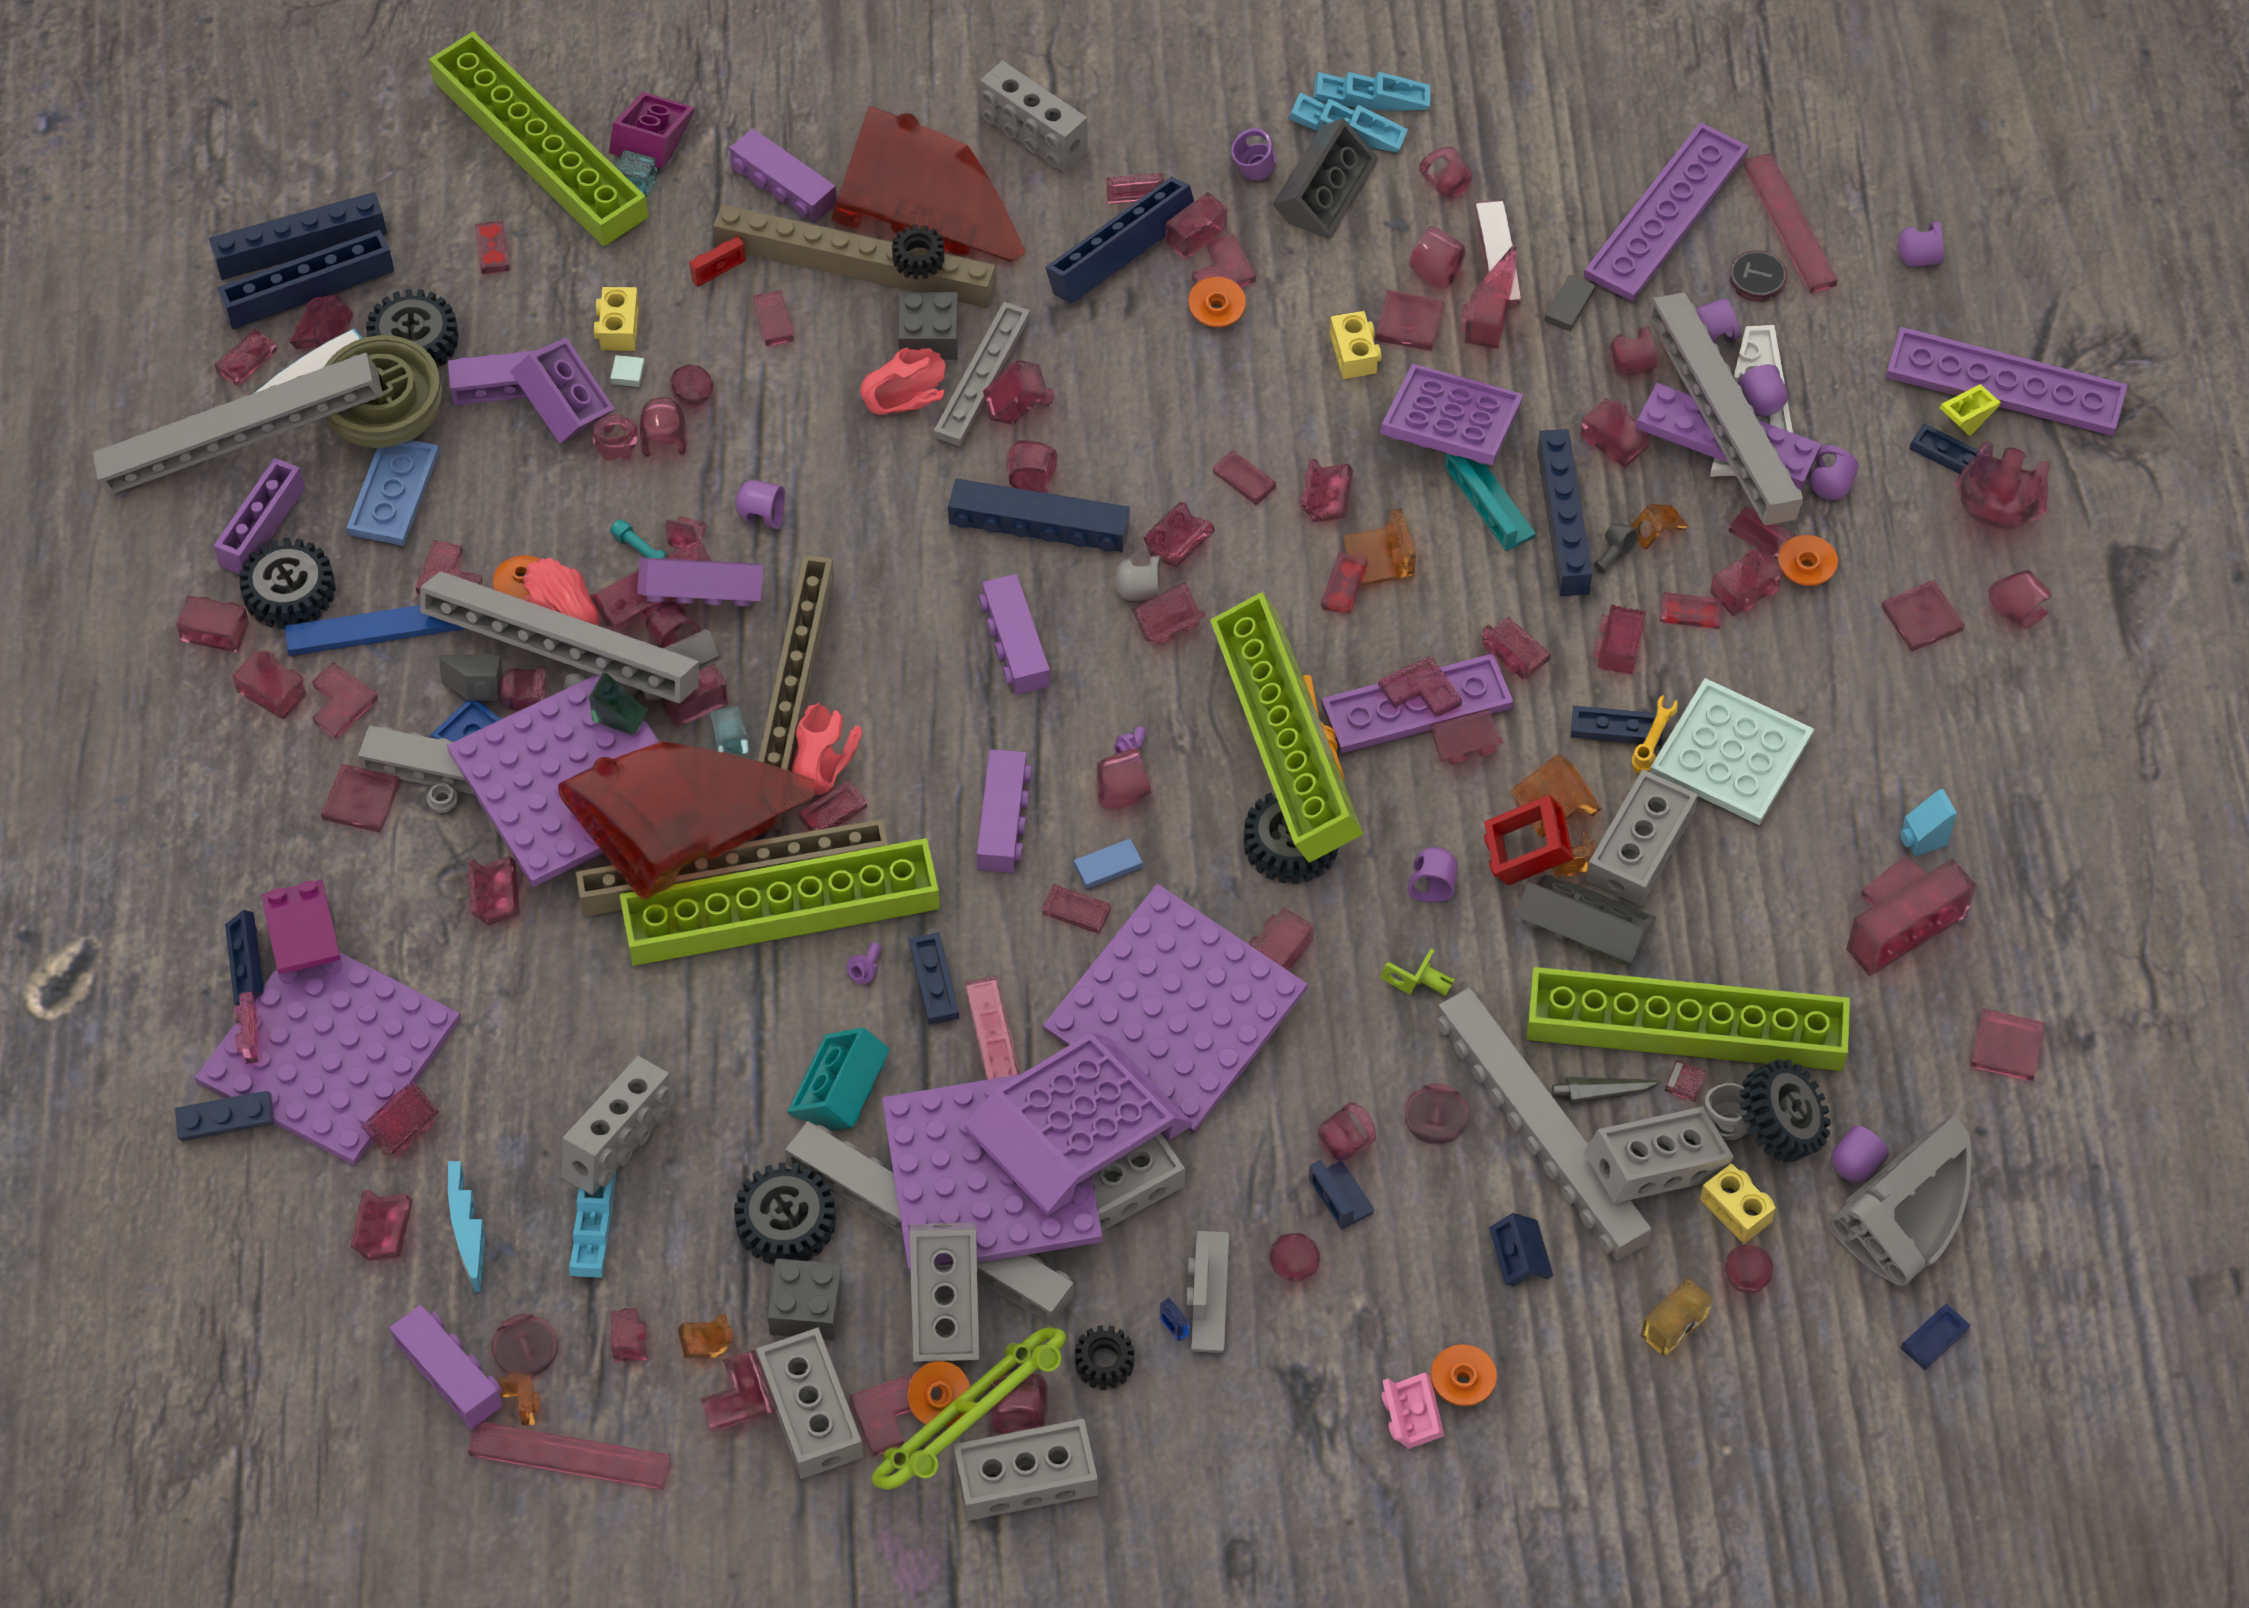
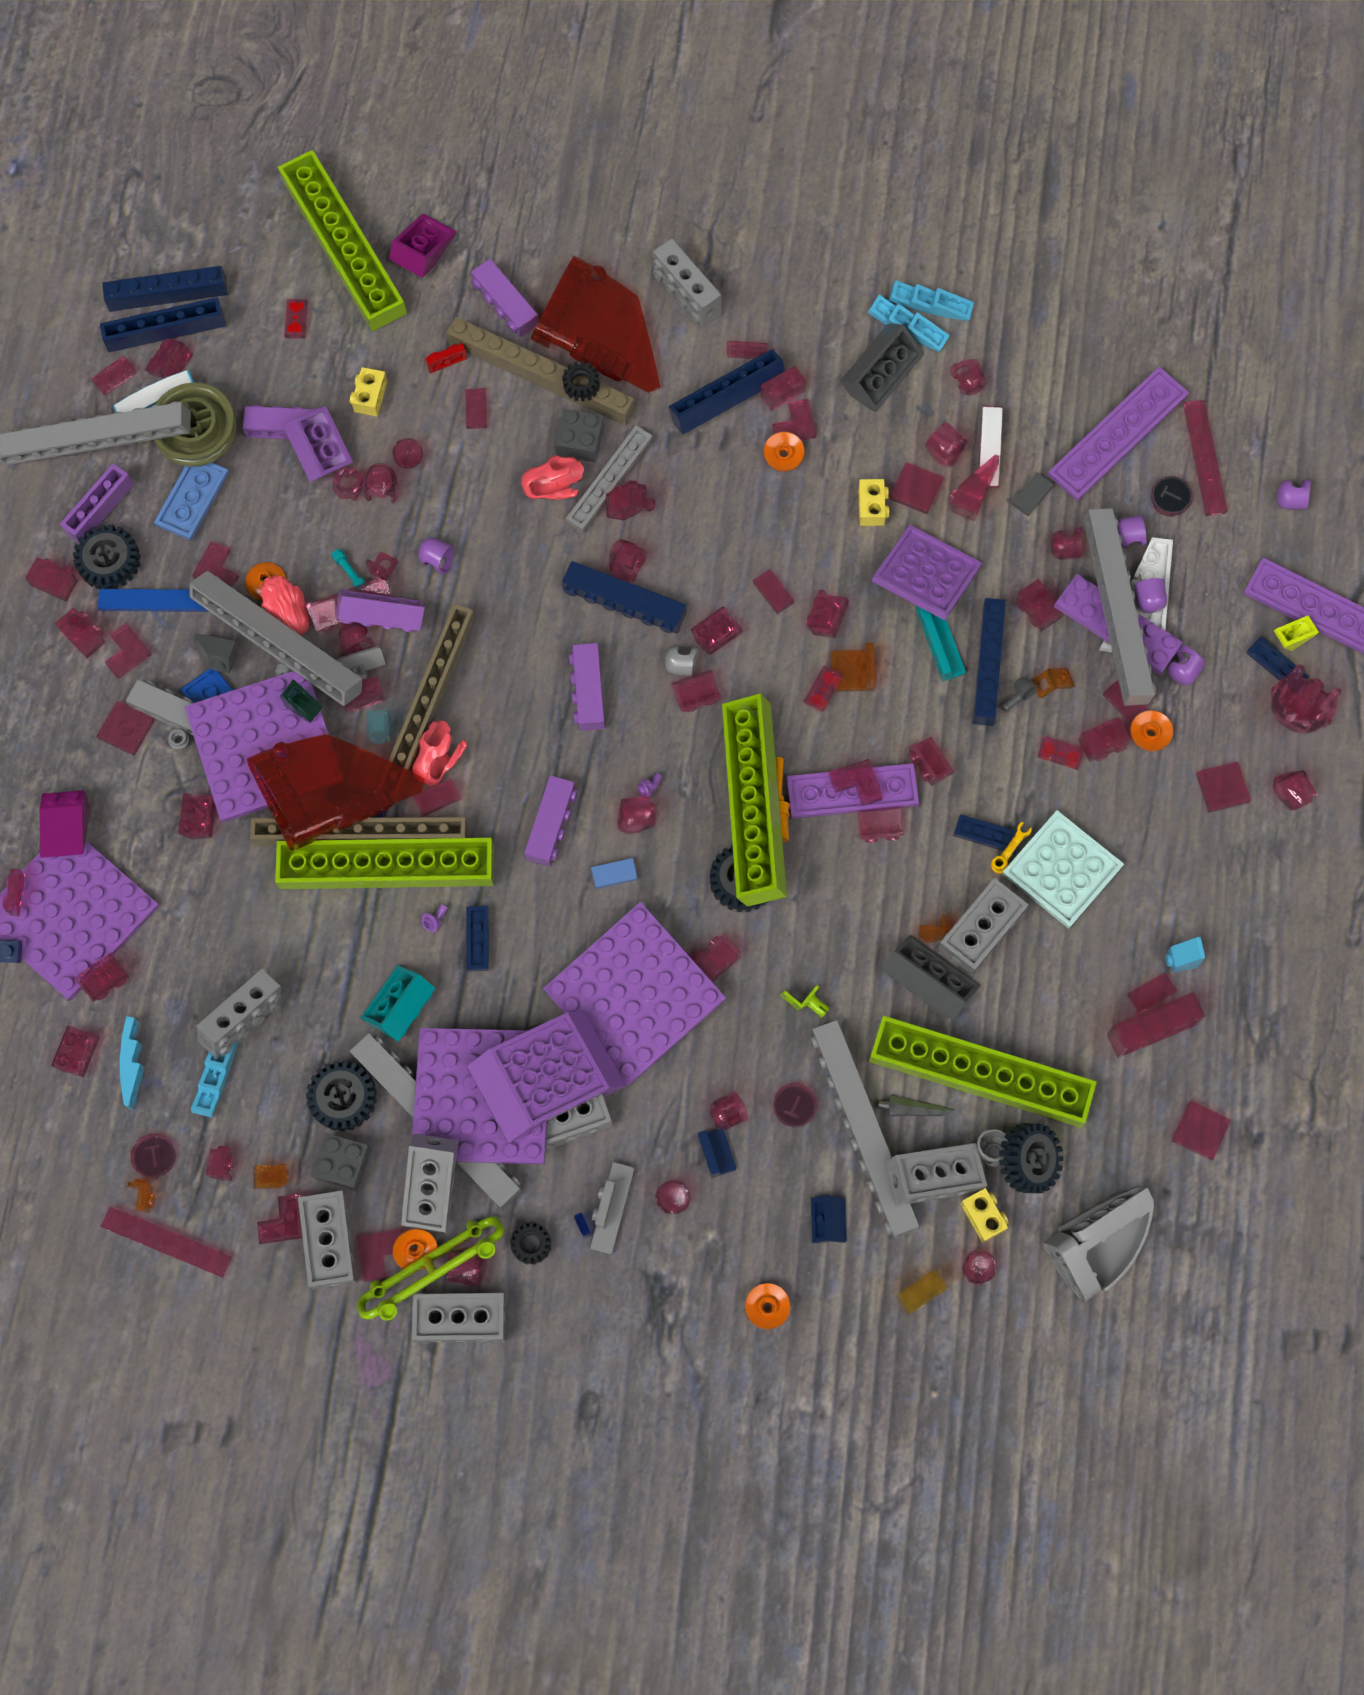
camera: 15 degrees right, 15 degrees up
(244, 955) = (25, 836): dark blue plate -> none
(433, 319) = (240, 384): wheel -> none
(446, 1366) = (97, 1165): medium lavender brick -> none
(522, 687) = (247, 668): clear pink helmet -> none
(627, 371) = (368, 432): light aqua tile -> none
(638, 169) = (404, 278): clear light blue brick -> none
(991, 1028) = (508, 988): clear pink slope -> none
(1076, 909) = (585, 903): clear pink tile -> none
(1255, 160) = (835, 342): medium lavender helmet -> none
(1412, 1410) = (727, 1325): bright pink bracket -> none
(1439, 869) = (836, 923): medium lavender helmet -> none
(1557, 835) = (922, 915): red window -> none
(1563, 783) = (932, 880): clear orange bracket -> none
(1621, 639) = (1005, 769): clear pink brick -> none
(1685, 1080) = (970, 1114): clear pink tile -> none
(1859, 1155) = (1075, 1198): medium lavender helmet -> none
(1935, 1336) = (1096, 1340): clear blue tile -> none

